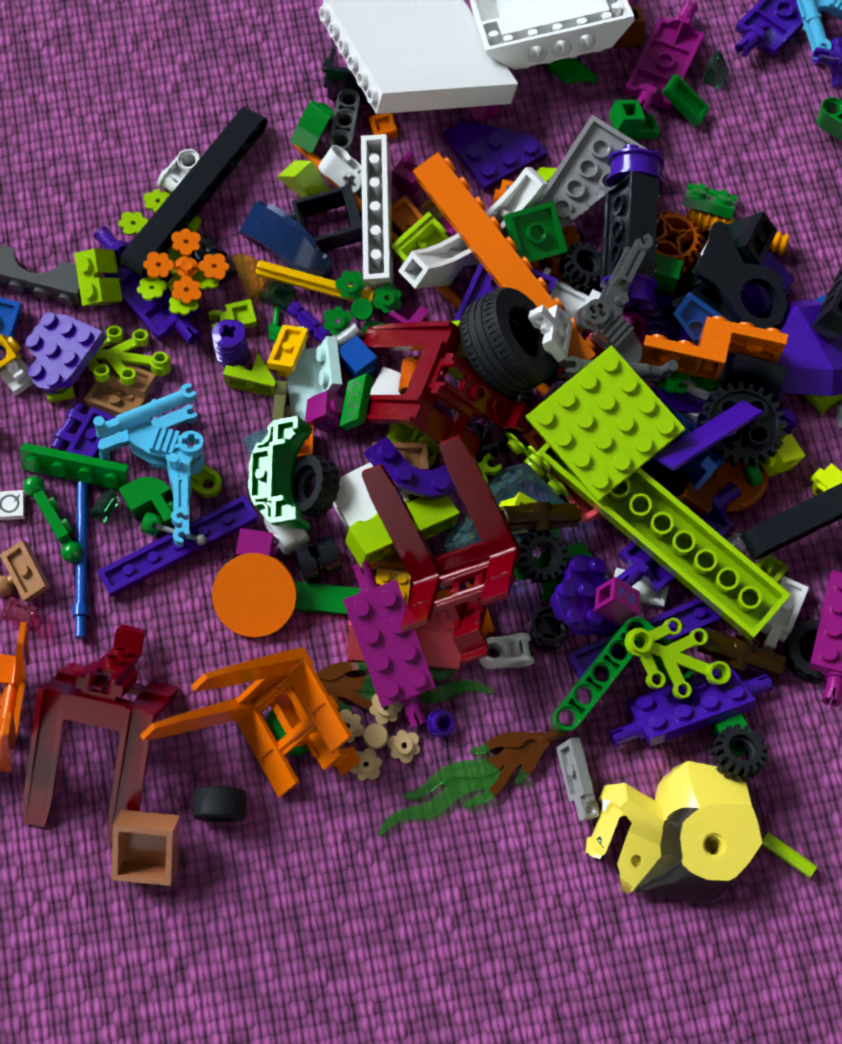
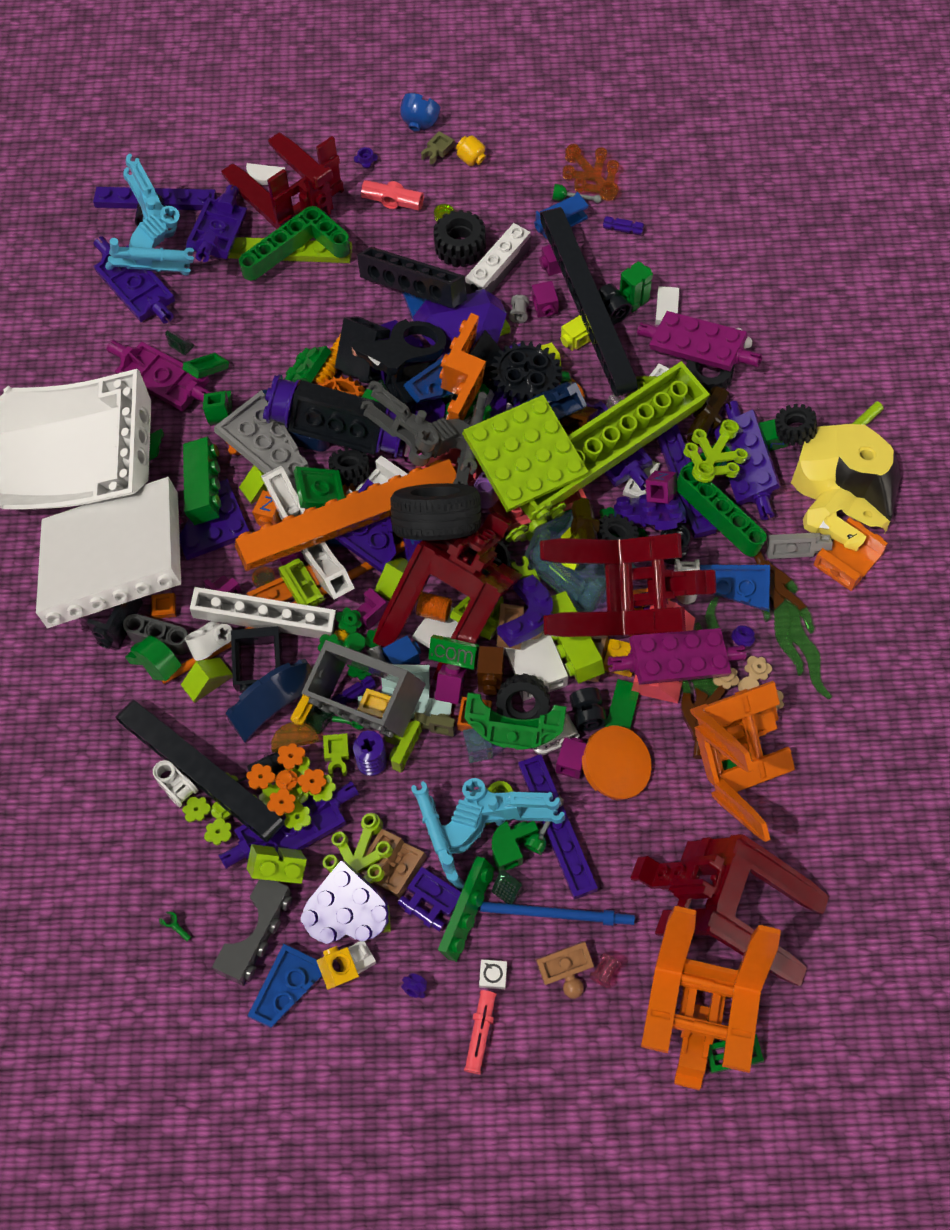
camera: 75 degrees left, 5 degrees down
(35, 206) = (175, 926): none -> green hand
(71, 550) = (505, 936): green plate -> none
(145, 847) = (839, 872): nougat piece -> none
(219, 804) = (802, 812): black tyre -> none
(300, 351) = (328, 671): none -> dark grey hose
(345, 446) = (490, 669): none -> reddish brown brick
(509, 710) = (743, 583): none -> blue wing
(532, 123) = (201, 480): none -> green brick
(556, 330) = (424, 477): white hinge -> none
(564, 847) = (848, 565): none -> orange panel
(708, 435) = (542, 384): dark purple piece -> none

